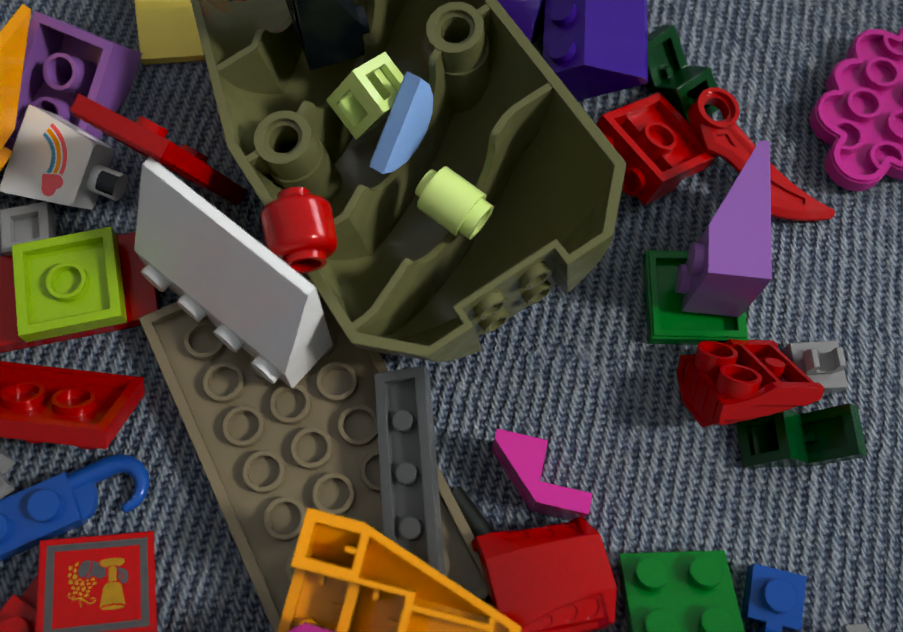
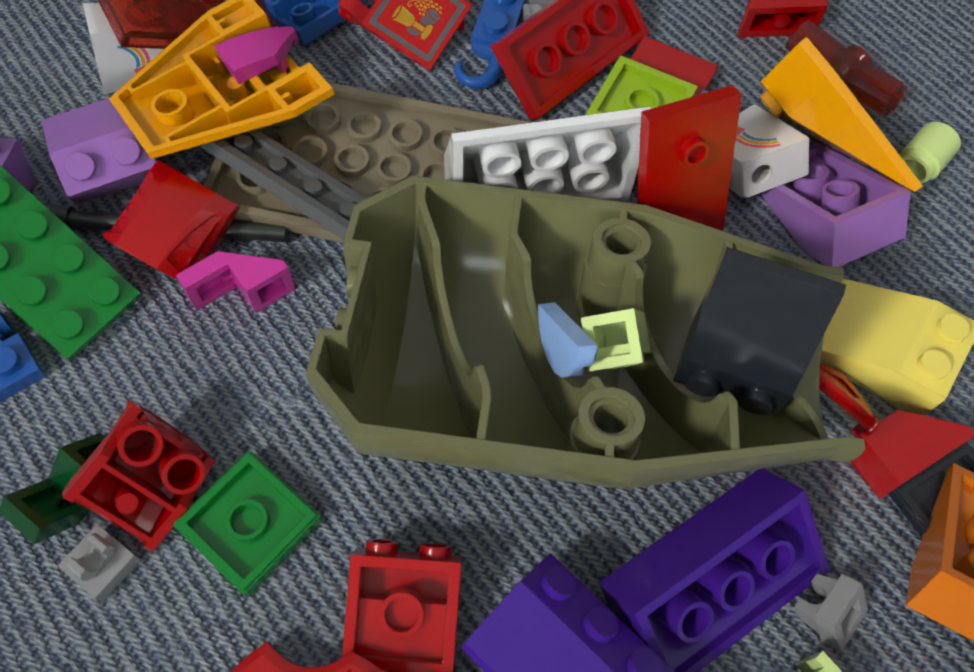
camera: 130 degrees right, 5 degrees down
(299, 229) = (517, 178): red head -> none
(453, 202) = (466, 331): yellowish green brick -> none
(735, 251) = (231, 527): medium lavender slope -> none

